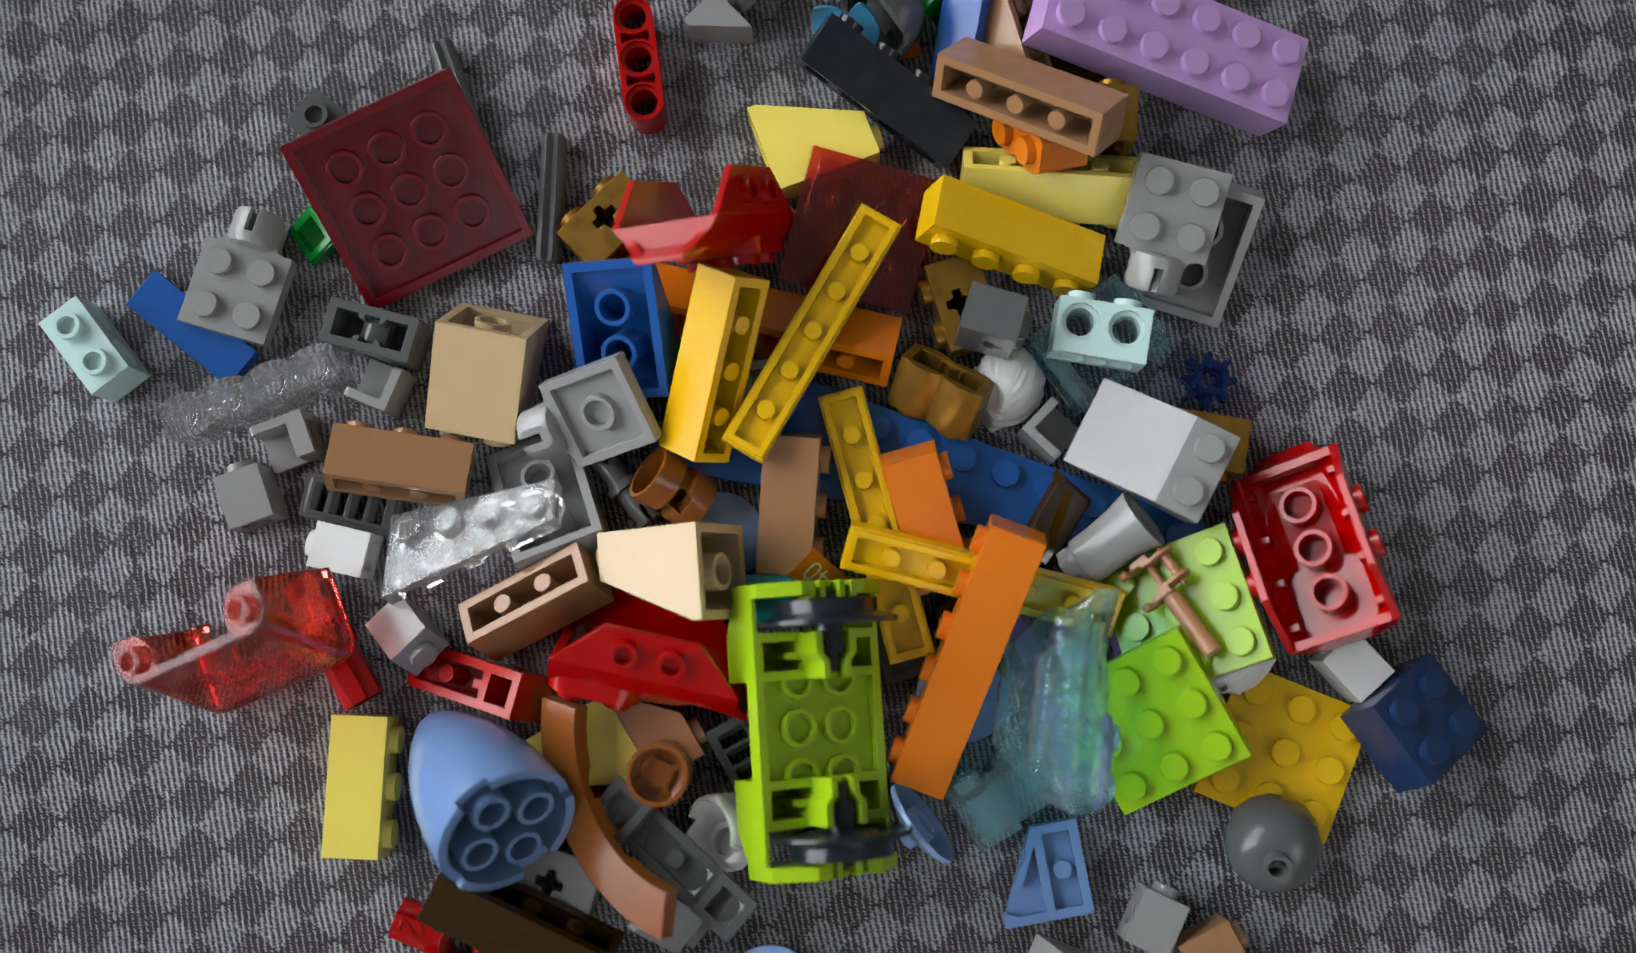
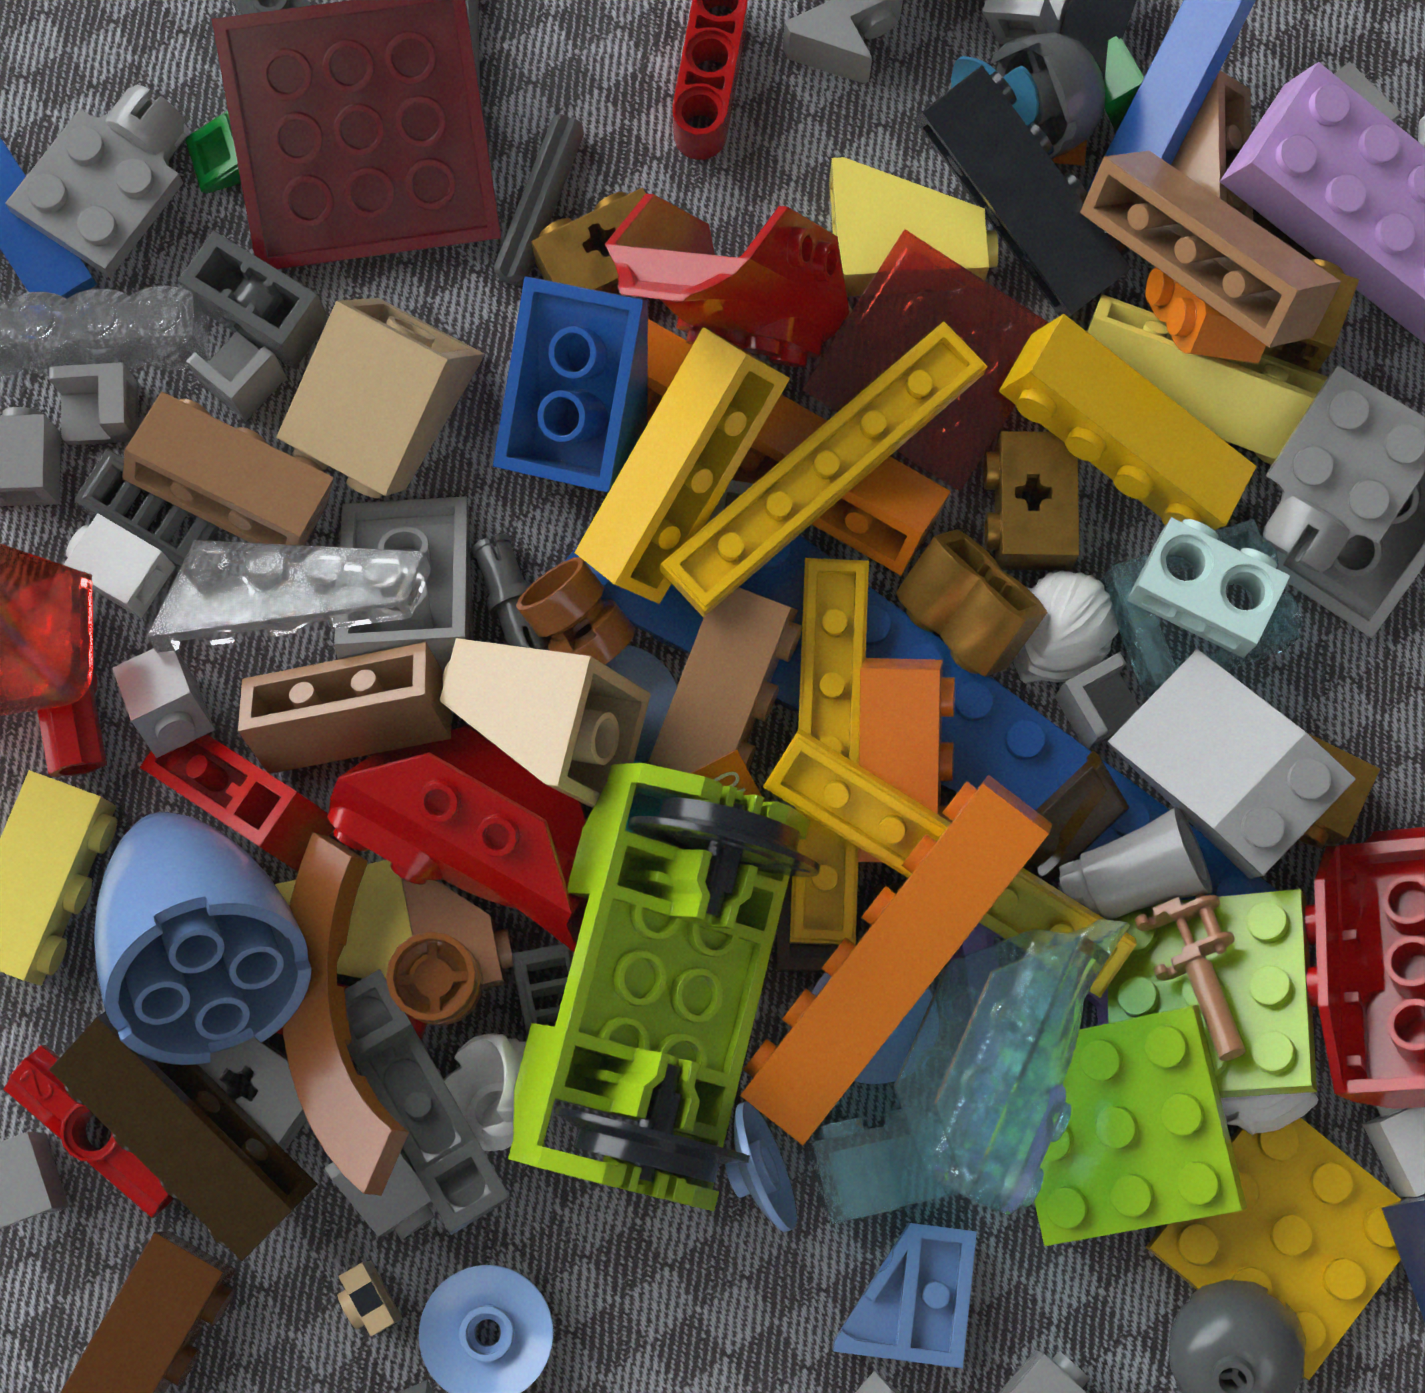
camera: 15 degrees right, 5 degrees down
(590, 414) = (498, 484): light grey plate -> none
(993, 321) = (1069, 524): dark grey brick -> none
(1198, 371) = (1340, 683): clear blue gear -> none

